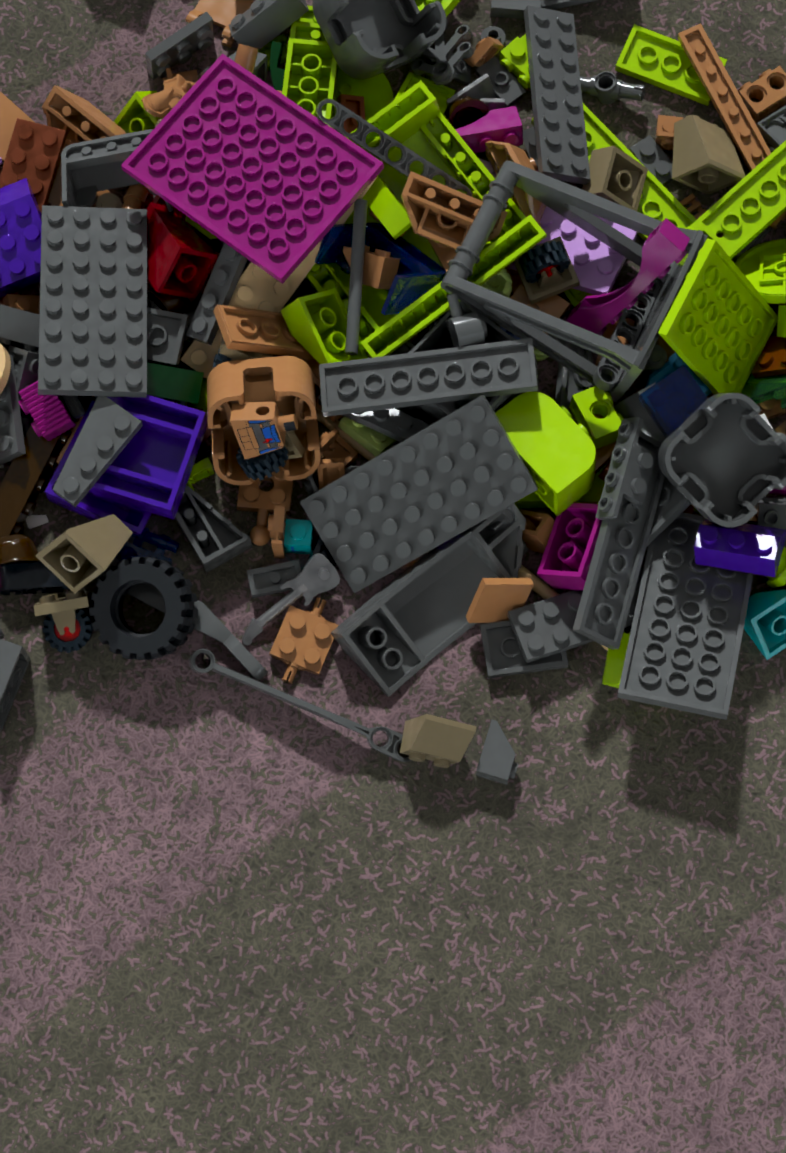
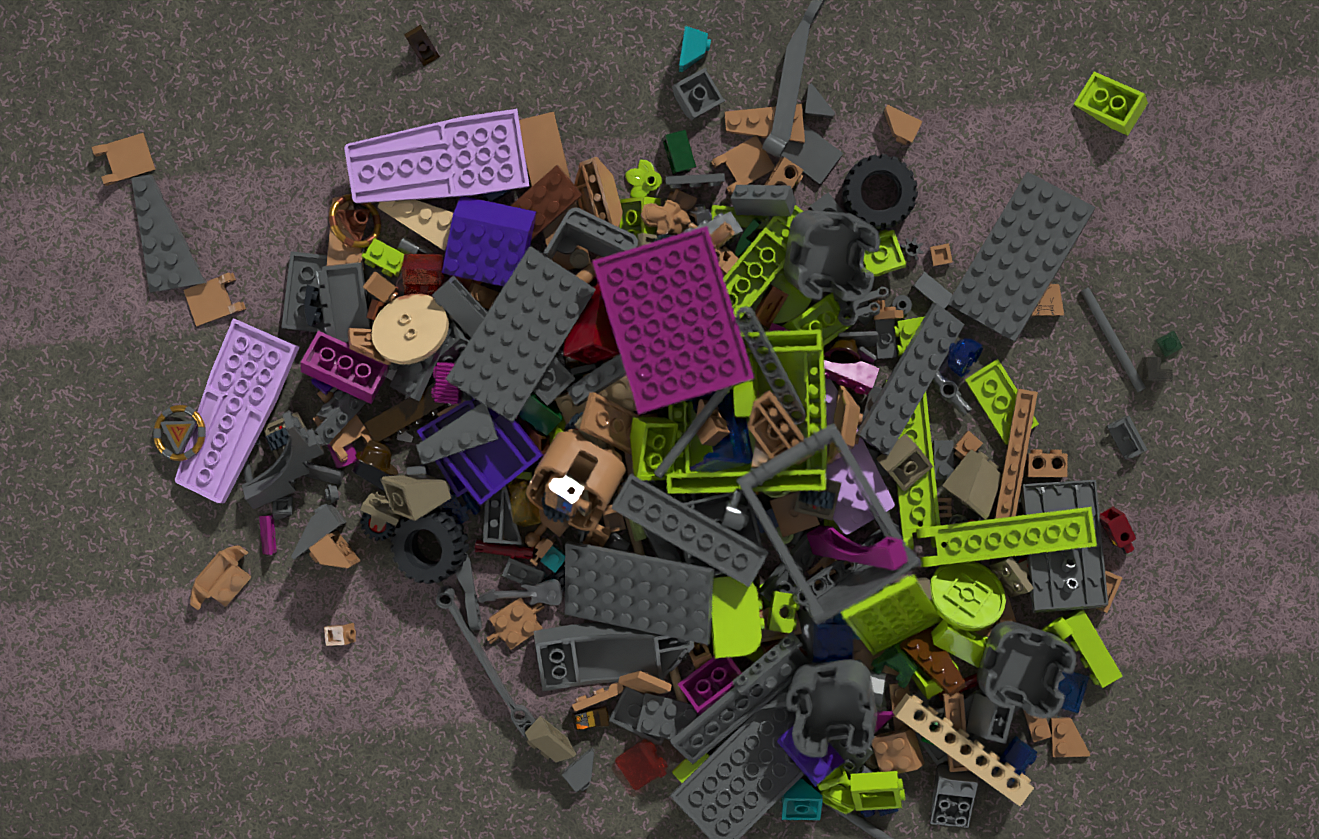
camera: 35 degrees right, 15 degrees up
(34, 686) = (333, 551): none -> medium nougat slope
(104, 788) = (340, 634): none -> medium nougat bracket
(120, 86) = (640, 179): none -> lime plate
(140, 32) = (678, 152): none -> dark green hinge
(224, 496) = (523, 510): none -> clear yellow brick
(236, 566) = (504, 549): none -> dark red pin
(457, 658) = (599, 695): none -> medium nougat hinge
(466, 688) = (591, 718): none -> dark brown leg
(562, 700) = (641, 764): none -> clear red bracket
(595, 41) = (963, 355): none -> clear blue cylinder

